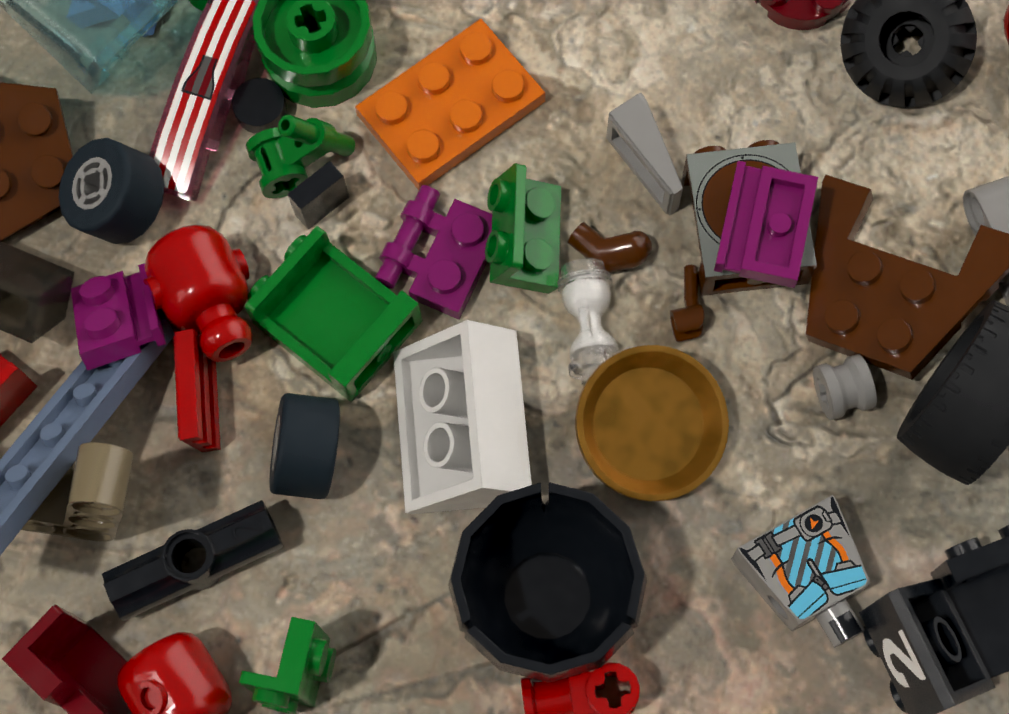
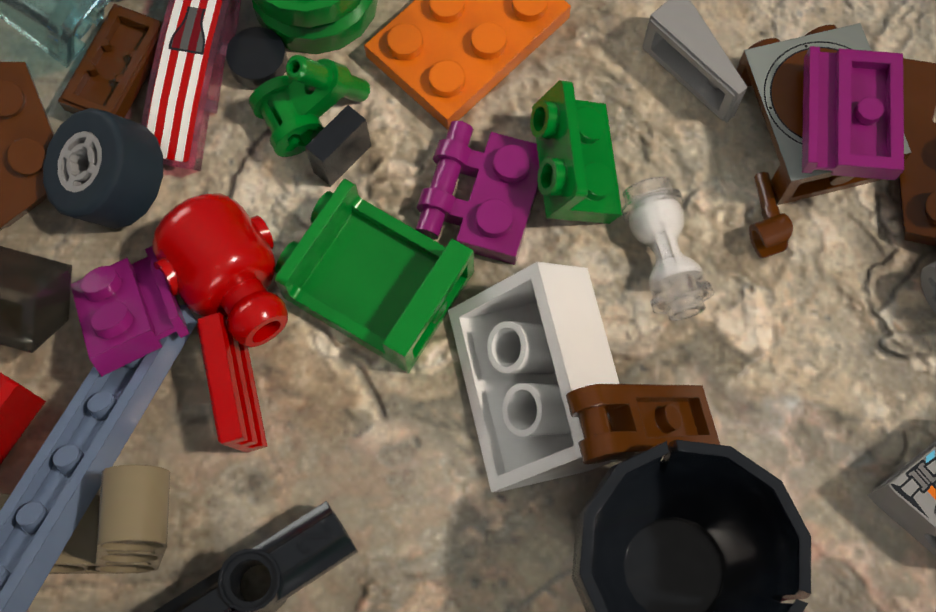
camera: 10 degrees left, 0 degrees up
(132, 97) = (114, 64): none -> reddish brown plate
(304, 446) = (367, 431): black wheel -> none
(529, 462) = (638, 418): none -> reddish brown plate
(616, 252) = (683, 167): reddish brown arm -> none
(652, 423) = (759, 353): pearl gold piece -> none

